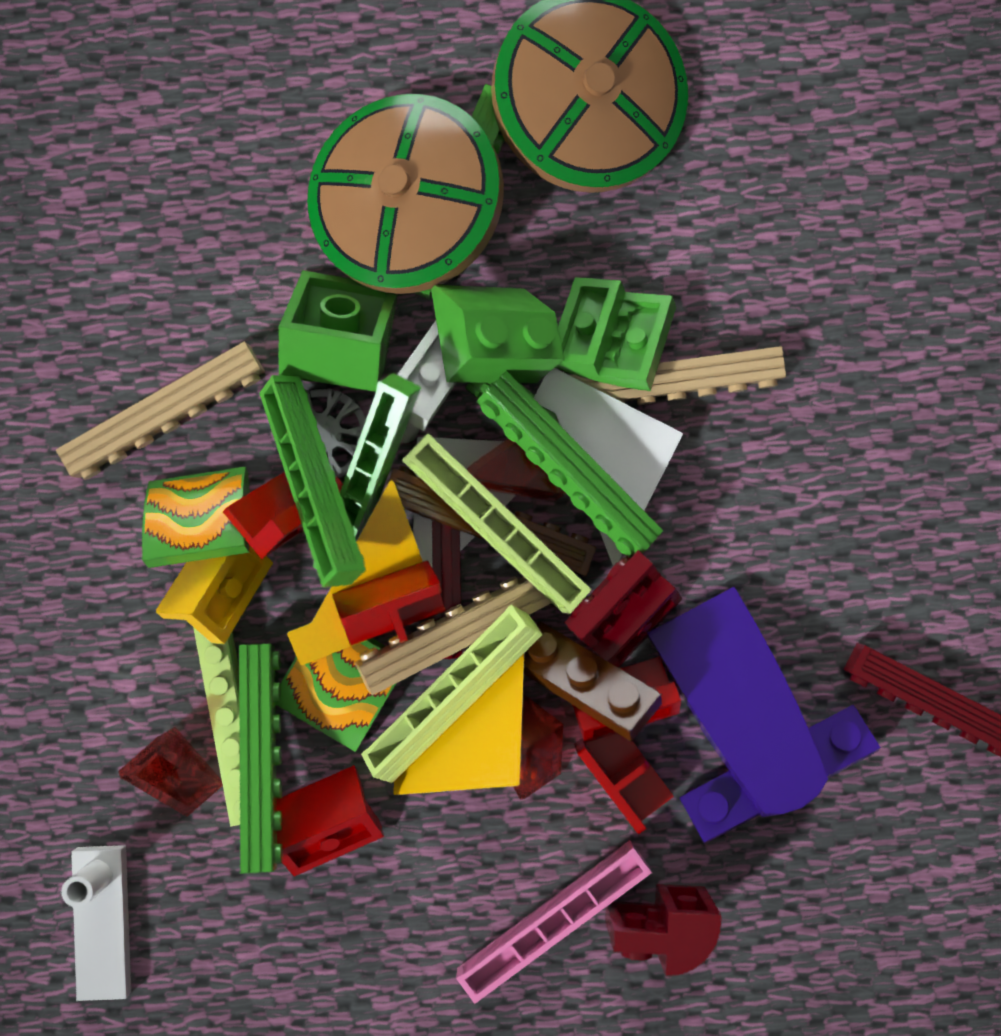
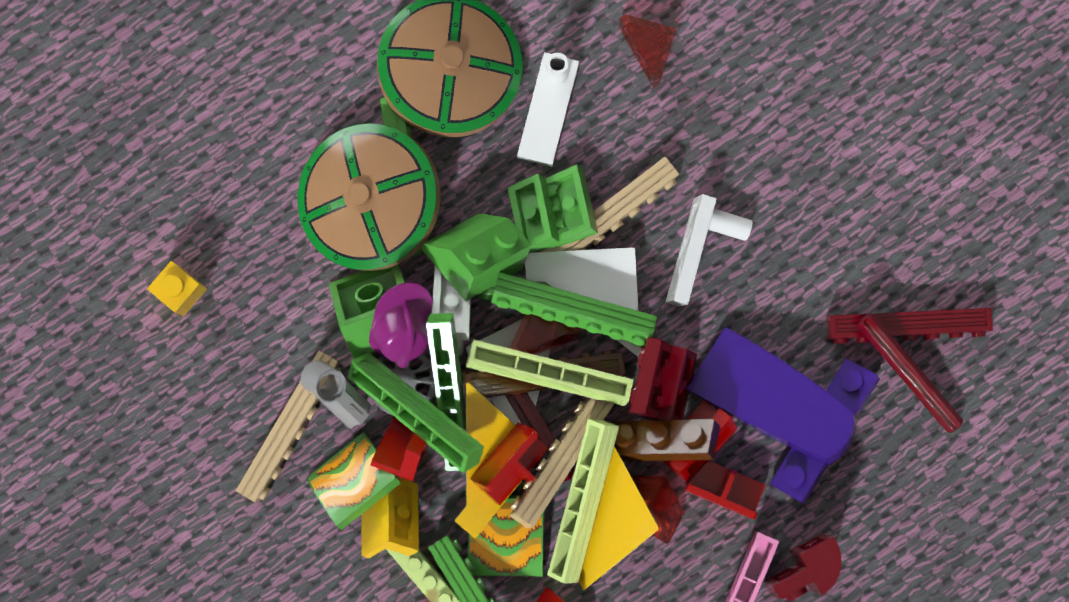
camera: 25 degrees left, 5 degrees down
(119, 173) = (177, 288): none -> yellow brick
(234, 404) = (336, 394): none -> light grey piece
(353, 362) = (400, 323): none -> magenta piece
(677, 210) = (548, 109): none -> white piece
(779, 446) = (700, 220): none -> white piece
(840, 200) = (649, 44): none -> clear red slope
(919, 765) = (910, 372): none -> dark red axle

